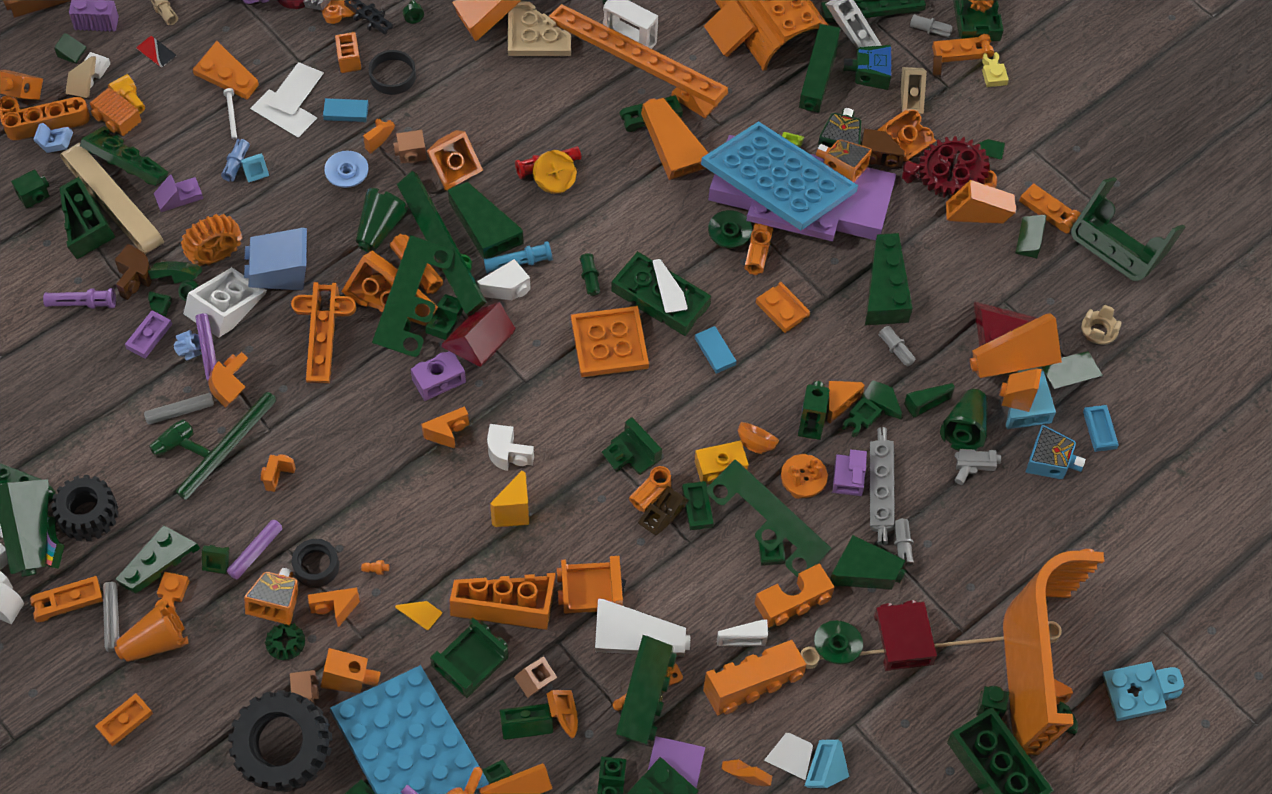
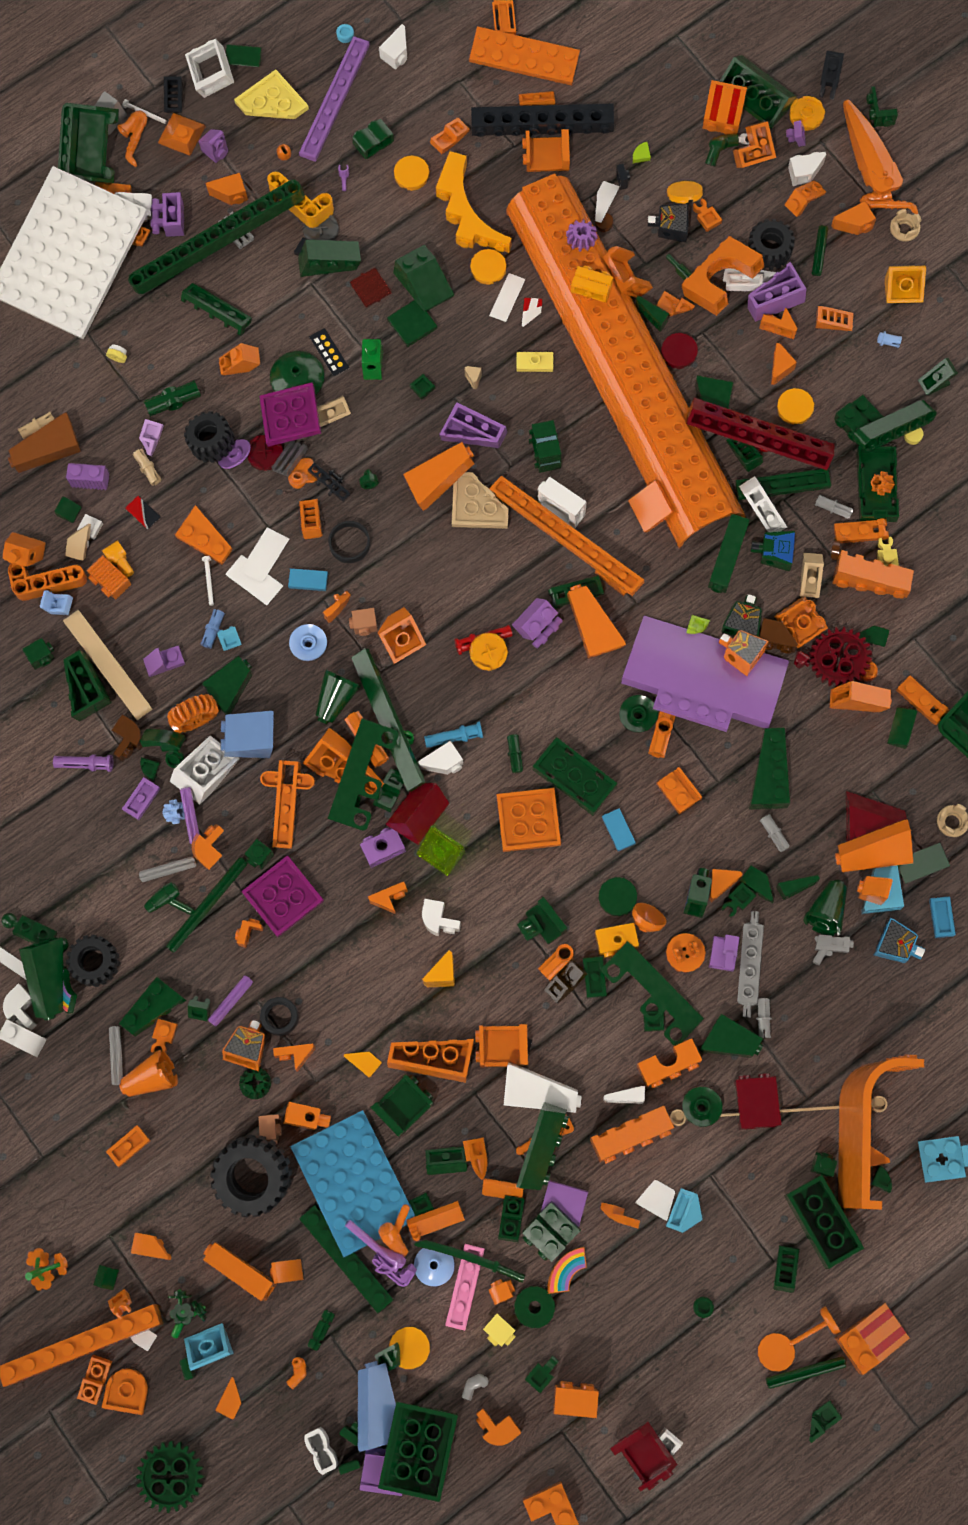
camera: 10 degrees right, 15 degrees up
(66, 598) = (80, 1038): orange plate -> none
(127, 158) = (108, 618): dark green wing -> none
(255, 210) = (229, 683): none -> dark green slope
(290, 386) = (258, 855): none -> dark green brick
(318, 432) = (282, 896): none -> magenta plate
(378, 567) = (331, 1021): orange piece -> none
(484, 222) = (425, 699): dark green slope -> none
(508, 374) = (440, 850): none -> clear neon green slope
(535, 677) = (454, 1127): nougat brick -> none
(591, 747) = (501, 1188): none -> orange slope
(606, 138) = (535, 619): none -> medium lavender brick
(671, 293) = (582, 778): white sticker -> none
(719, 419) = (617, 896): none -> dark green tile
(779, 175) = (684, 667): dark azure plate -> none
(979, 86) = (872, 576): none -> orange wedge

